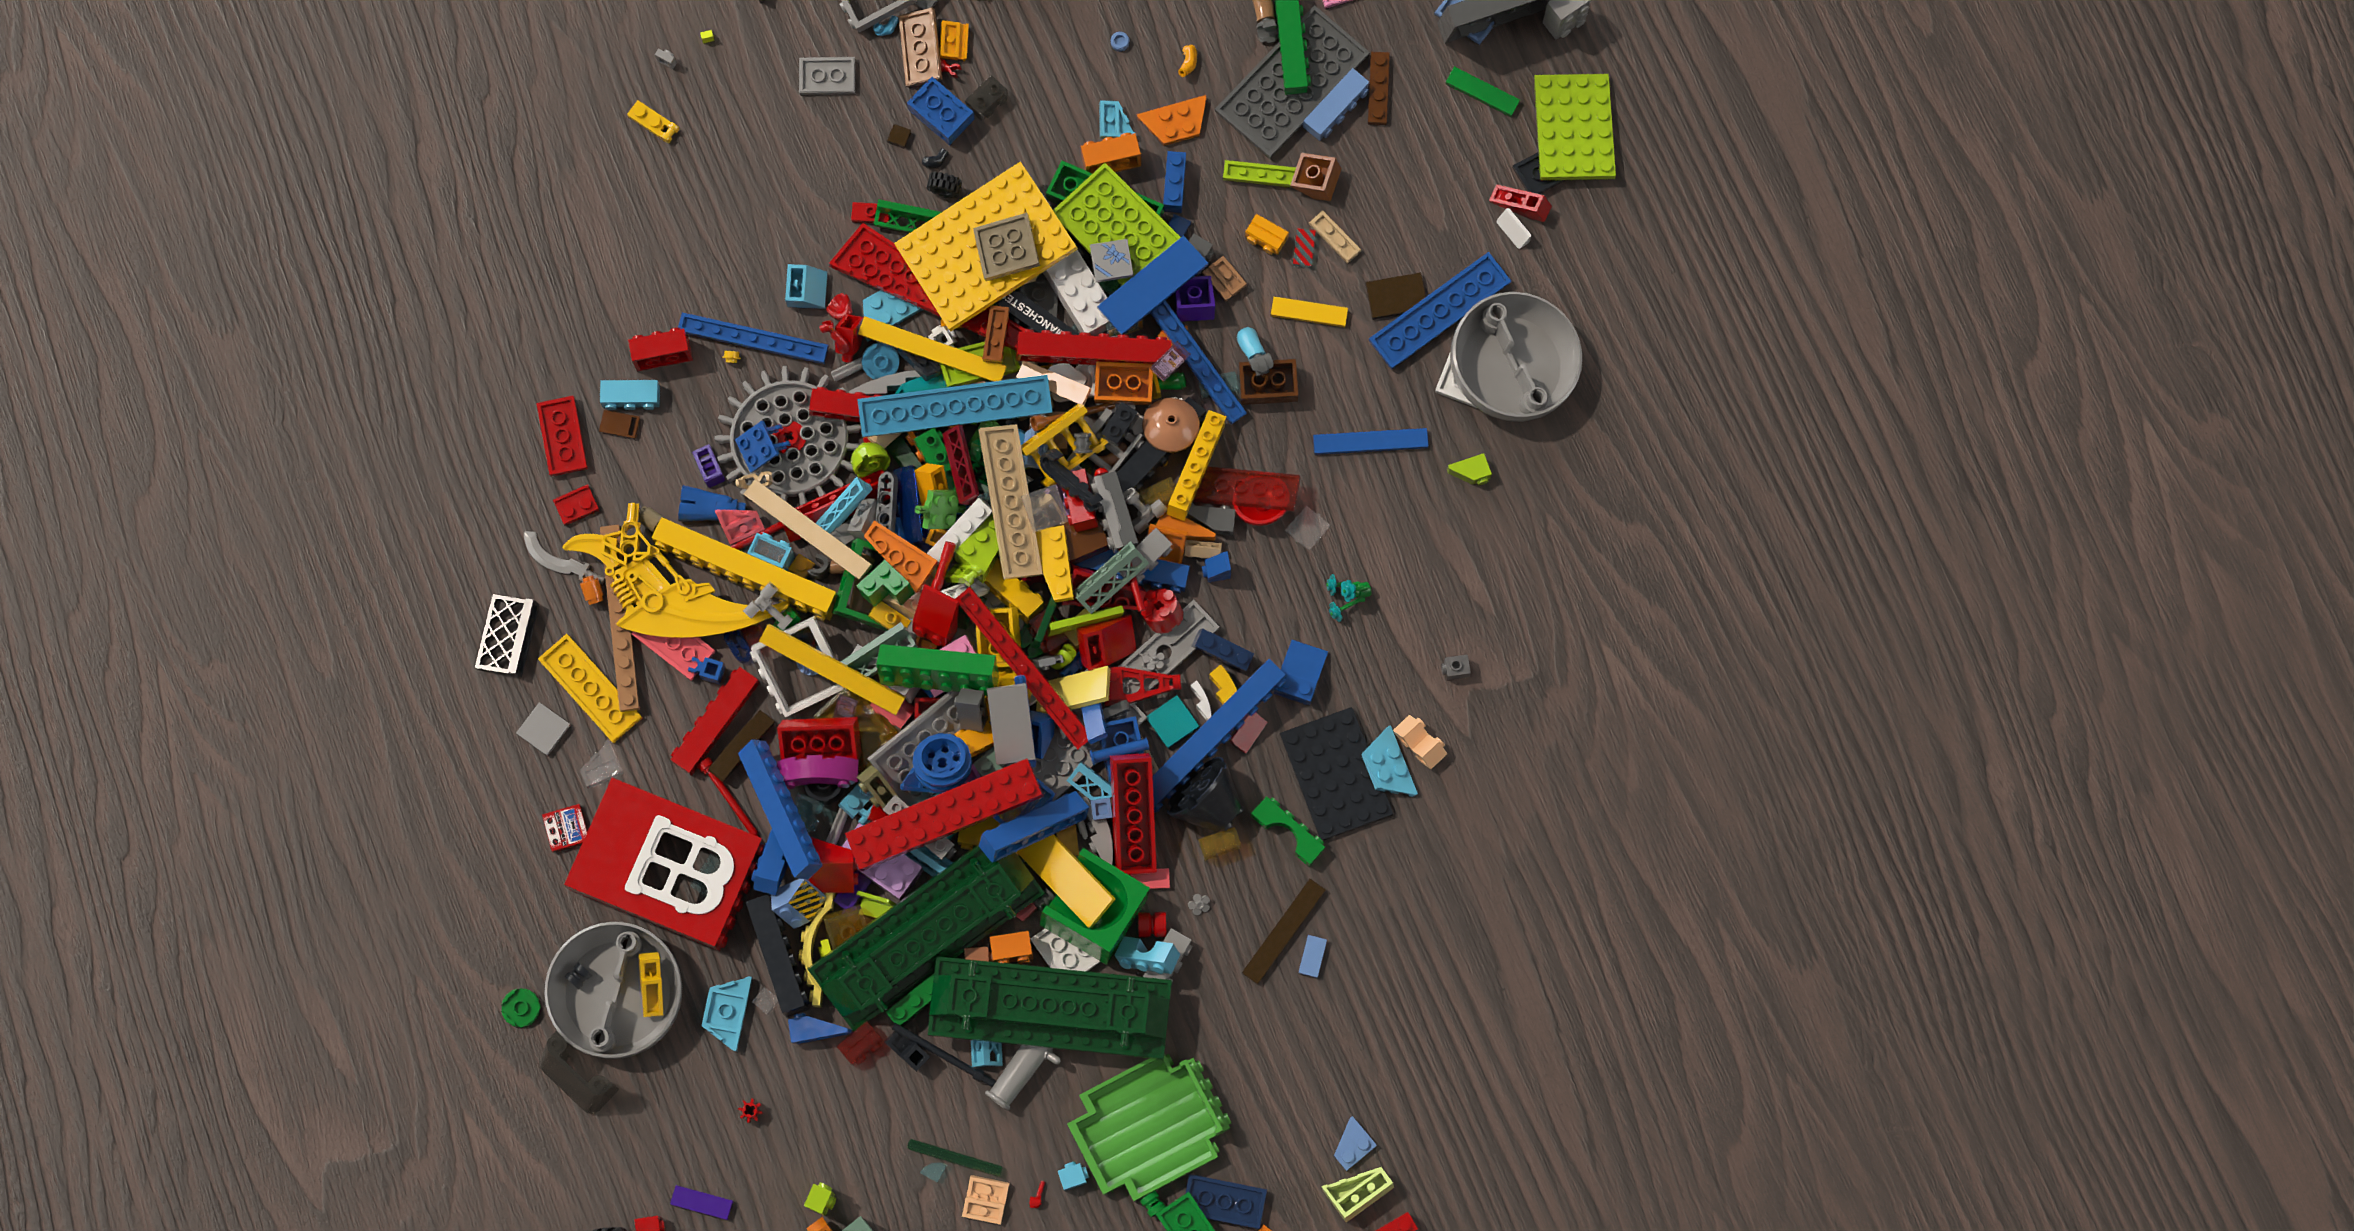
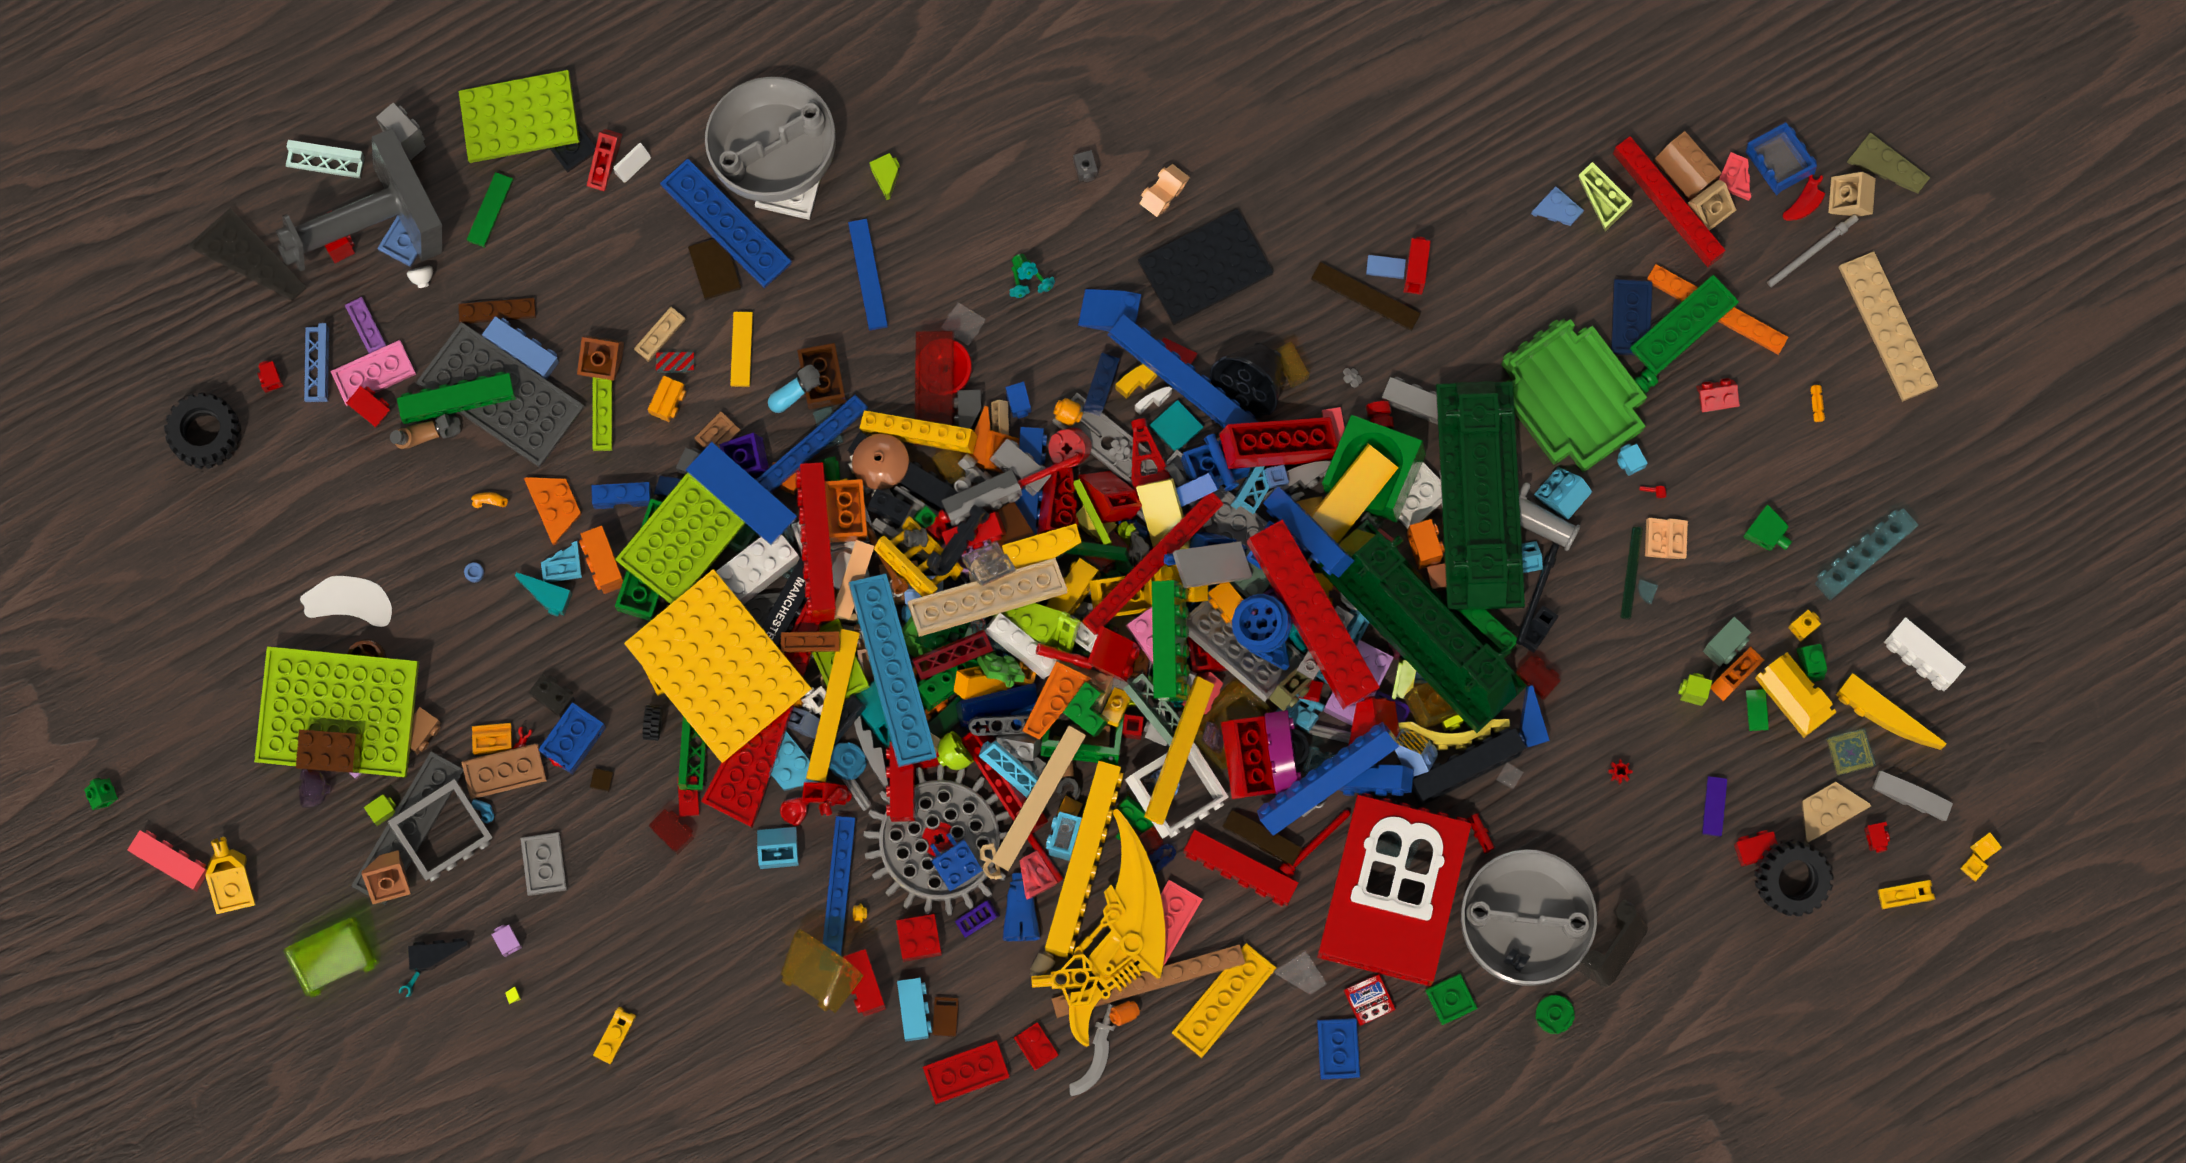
camera: 100 degrees left, 0 degrees up
(521, 642) = (1186, 1076): fence -> none
(523, 791) = (1338, 1049): none -> blue tile
(543, 729) = (1272, 1040): light grey tile -> none
(553, 908) = (1451, 999): none -> green tile
(651, 984) = (1514, 885): yellow slope -> none
(666, 58) = (543, 1032): light grey plate -> none
(674, 304) = (819, 971): none -> clear yellow windscreen
(697, 407) = (918, 937): none -> red brick
(710, 670) = (1191, 880): blue brick -> none
(711, 962) = (1481, 833): none -> red pin
(727, 1010) = (1526, 810): medium azure wing -> none
(758, 33) = (506, 940): none -> lavender brick
(764, 602) = (1120, 828): light grey bar -> none
(838, 192) = (671, 831): none -> clear red brick
(869, 632) = (1132, 727): none -> red brick
(924, 323) = (803, 722): none -> sand blue slope
(935, 161) = (625, 738): black arm -> none
(971, 709) = (1203, 605): dark grey brick -> none
(1006, 247) = (721, 638): dark tan plate -> none
(1047, 1100) = (1563, 492): none -> medium azure slope
(1086, 103) = (550, 596): none -> teal slope
(1103, 459) = (930, 522): none -> leg
(1108, 571) = (1048, 494): sand green fence -> none
(1111, 260) = (720, 536): light grey tile -> none
(1159, 959) = (1417, 399): medium azure arch -> none
(1170, 361) = (822, 461): tile -> none
(1197, 613) = (1068, 411): none -> light orange head
(1270, 814) = (1281, 284): green arch -> none
(1306, 984) = (1417, 265): none -> red brick
(1387, 765) = (1190, 218): medium azure wing -> none
(1422, 20) = (421, 276): none -> white brick

